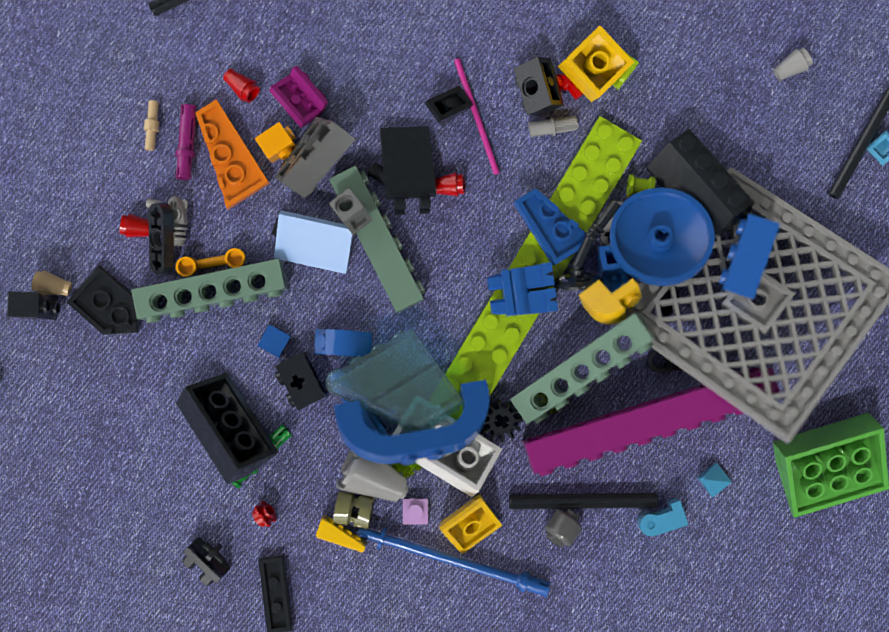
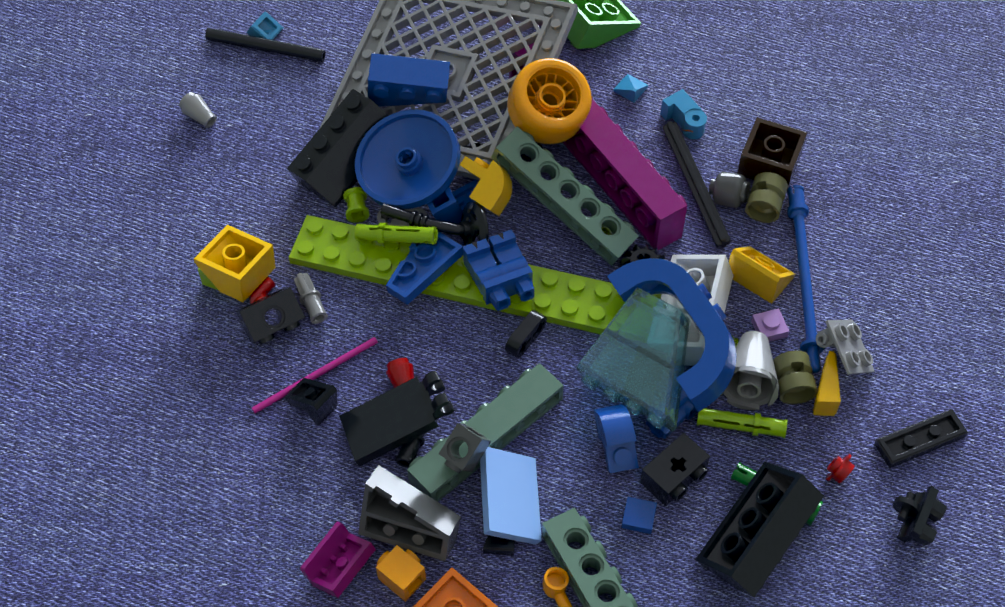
camera: 110 degrees left, 30 degrees down
(324, 460) = (743, 422): none -> lime pin
(366, 565) = (846, 337): none -> light grey hinge
(463, 299) = (525, 333): none -> black beam
(541, 556) = (766, 197): none -> olive wheel
(589, 581) = (771, 149): none -> dark brown brick
(599, 185) = (387, 233): none -> lime pin
(672, 399) = (549, 100): none -> light orange wheel

